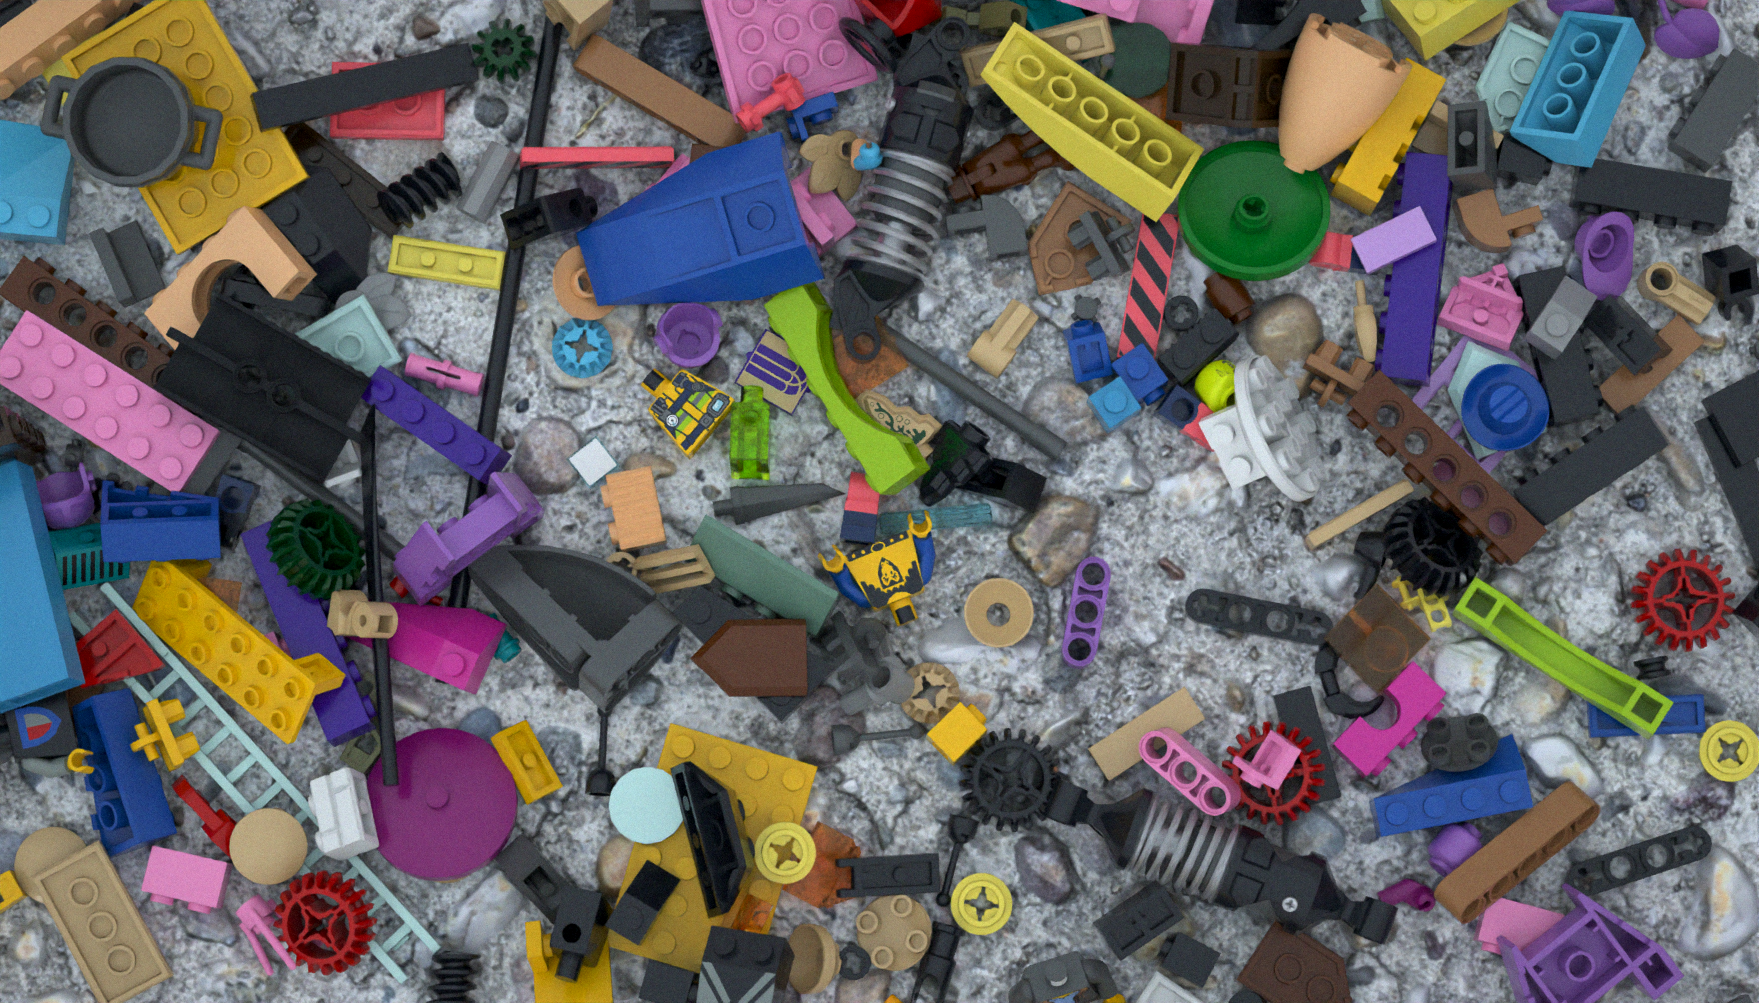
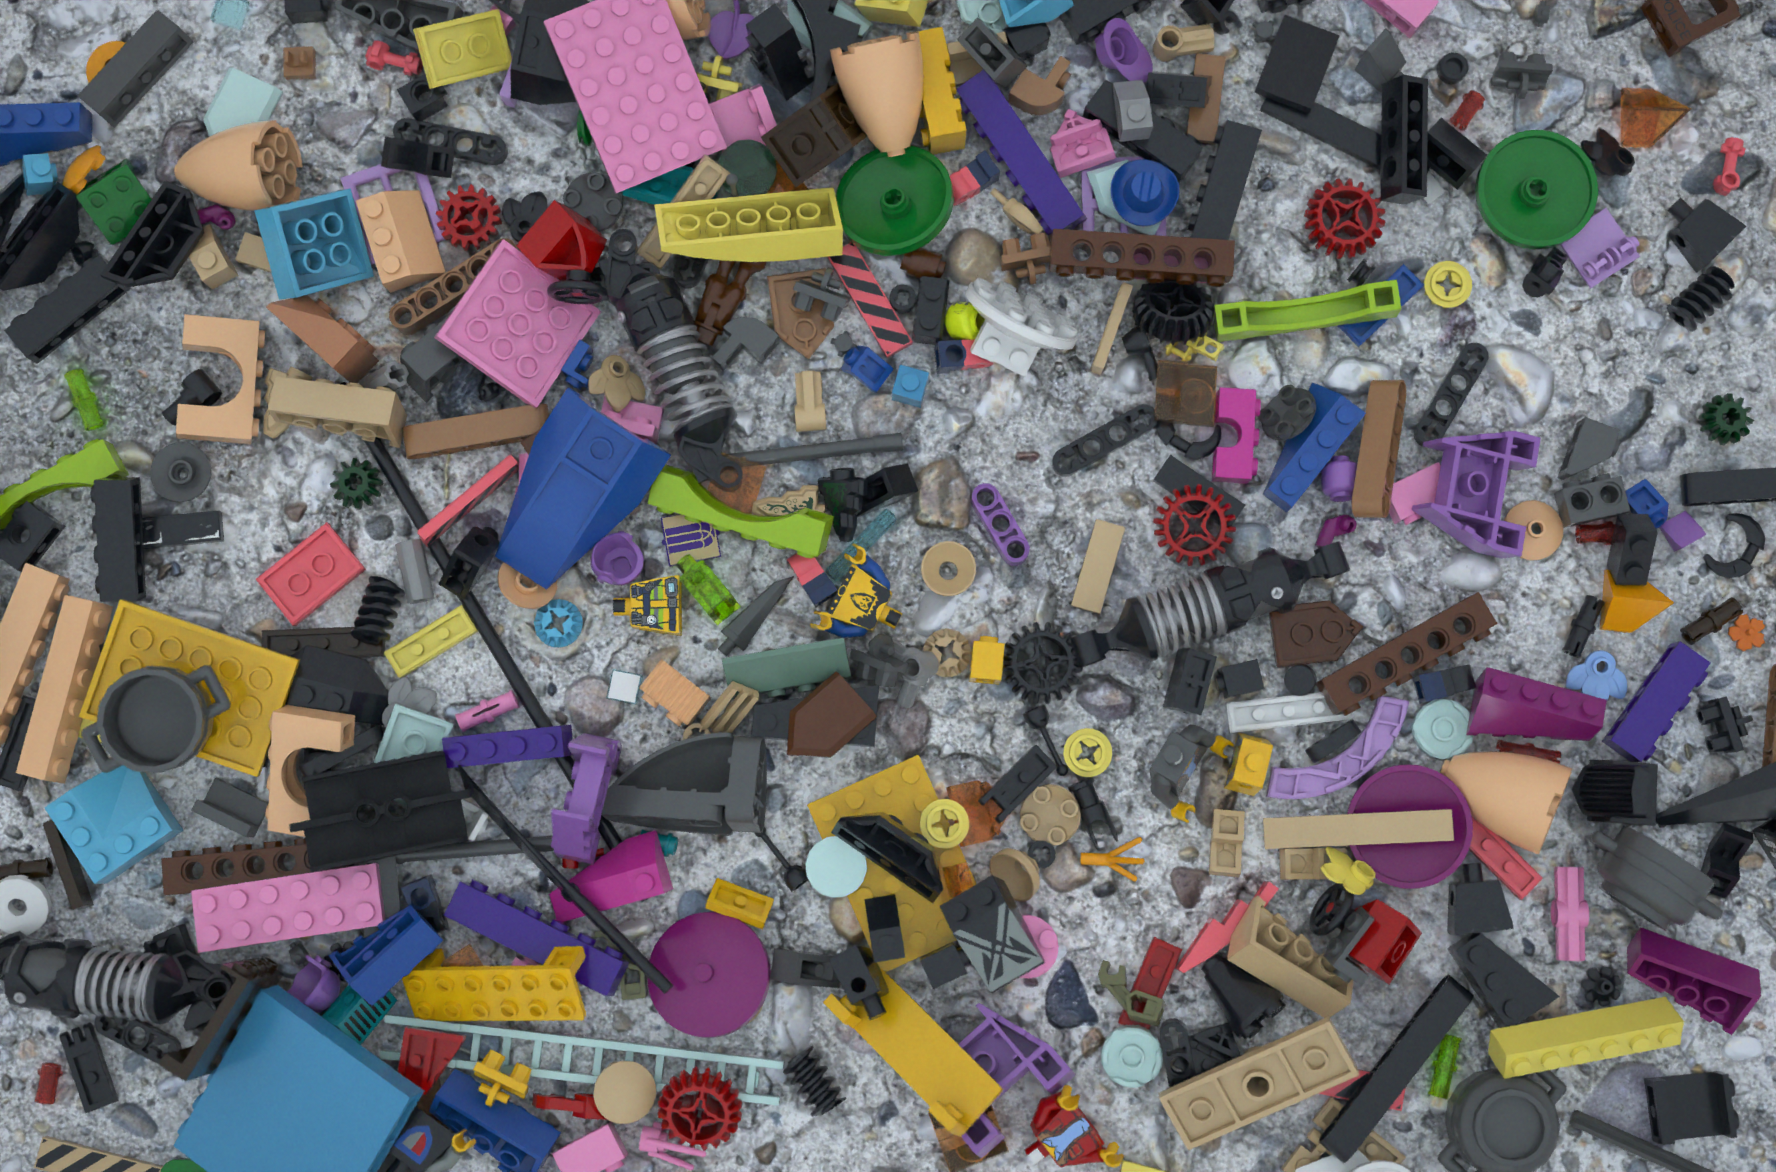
camera: 40 degrees left, 0 degrees up
(315, 549) = (498, 885): dark green gear -> none
(343, 814) = (654, 1032): white brick -> none
(355, 616) = (557, 904): tan leg -> none
(364, 87) = (286, 577): black tile -> none
(787, 93) = (553, 363): coral bar -> none
(846, 738) = (921, 722): dark grey hinge -> none
(865, 157) = (632, 362): medium azure arm -> none
(992, 20) = (640, 215): olive piece -> none
(1141, 375) = (911, 353): blue bracket -> none
(1171, 768) = (1131, 572): bright pink beam -> none
(1270, 763) = (1190, 518): bright pink bracket -> none
(1393, 240) = (993, 146): lavender tile -> none

